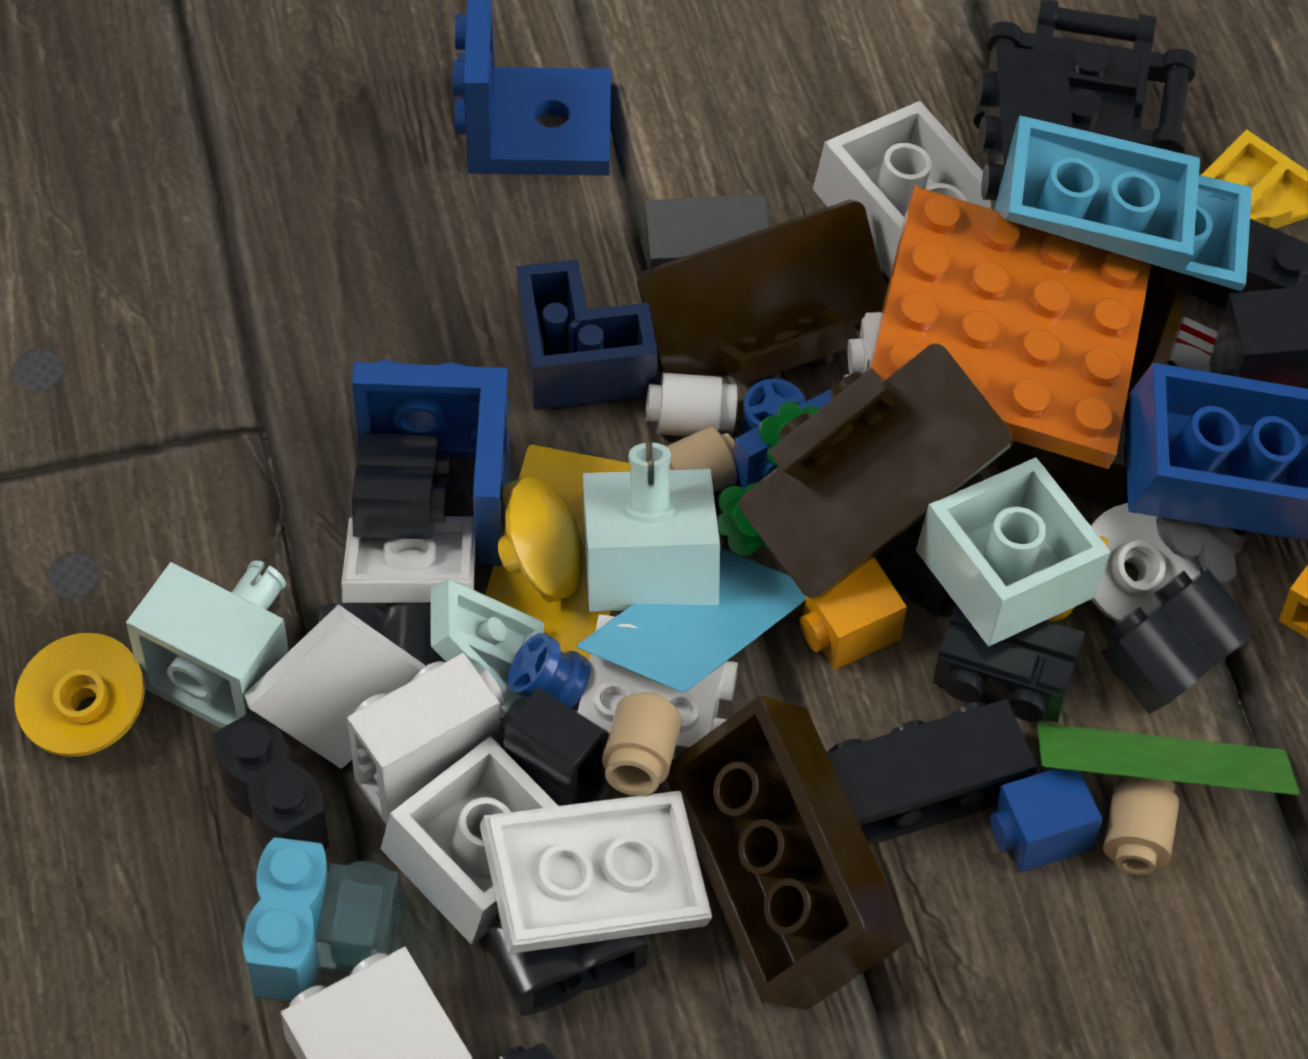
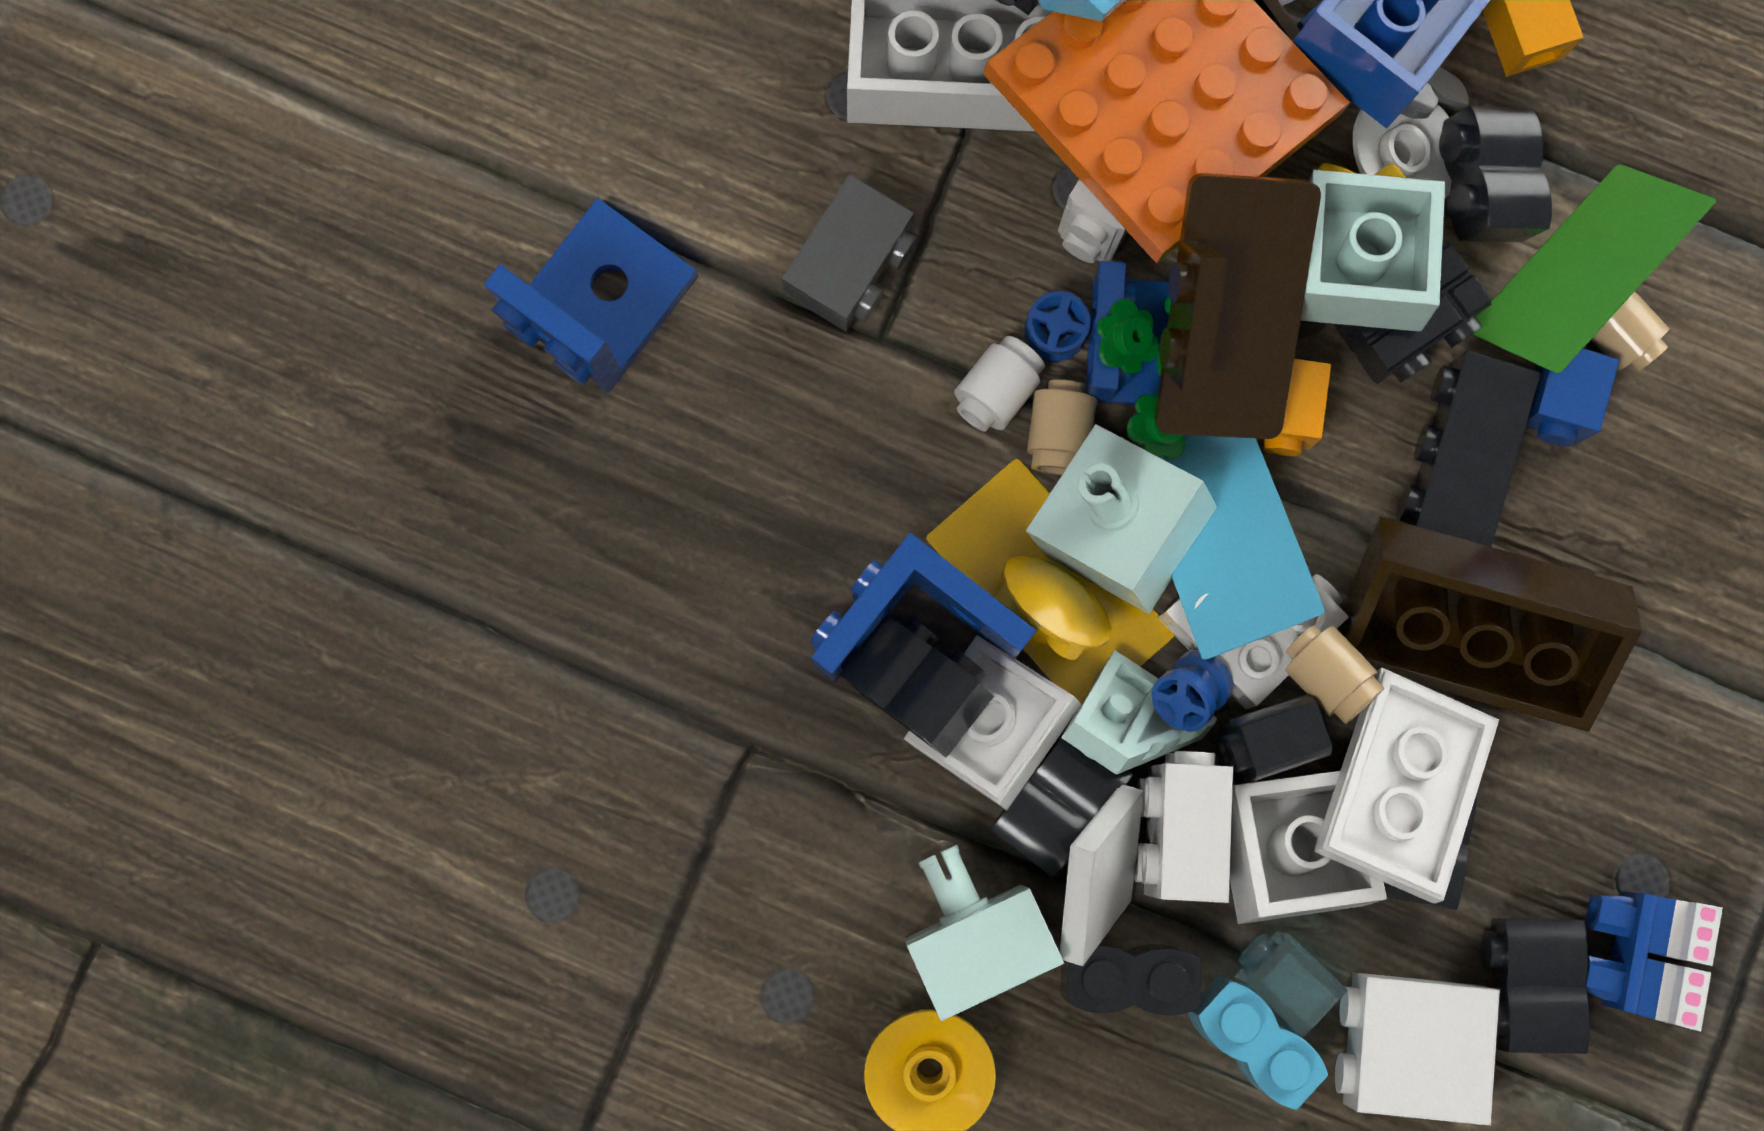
camera: 55 degrees left, 25 degrees up
(578, 351) = (882, 450): dark blue brick -> none
(767, 297) = (957, 252): dark brown bracket -> none

